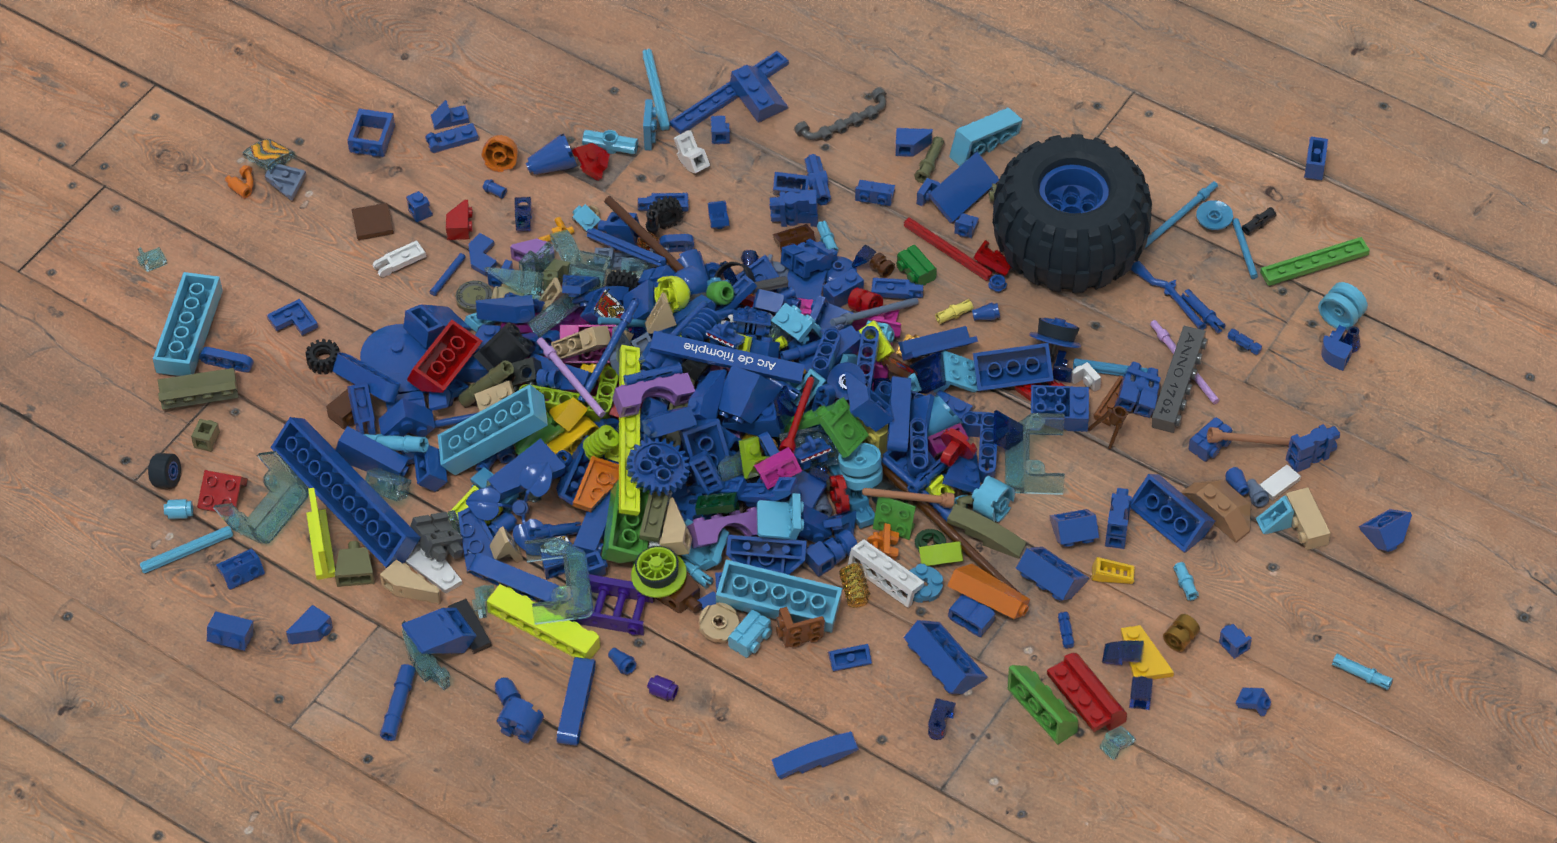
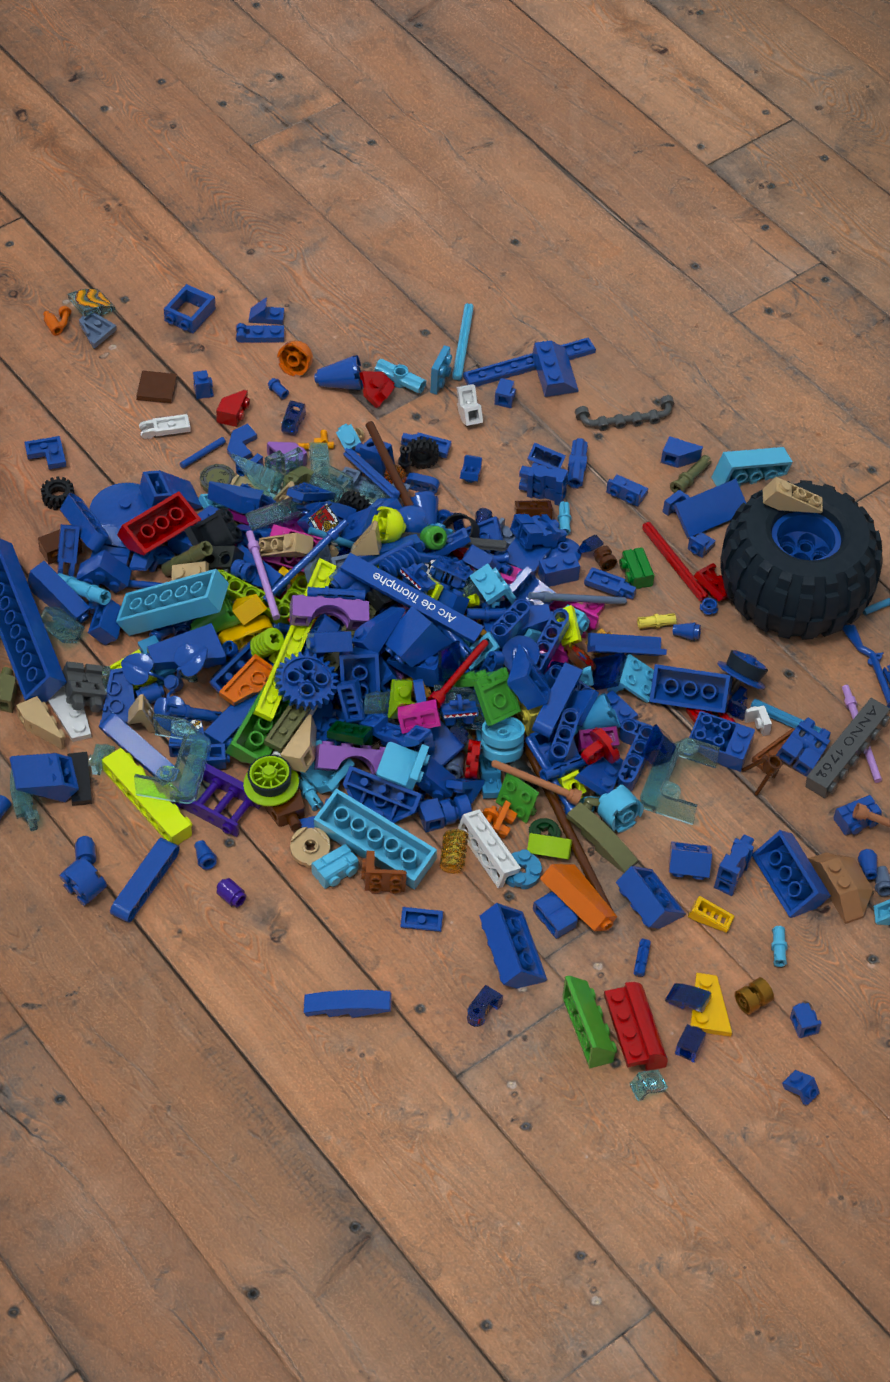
camera: 15 degrees right, 0 degrees up
(863, 300) = (573, 584): red wheel -> none
(1046, 157) = (789, 497): none -> tan slope

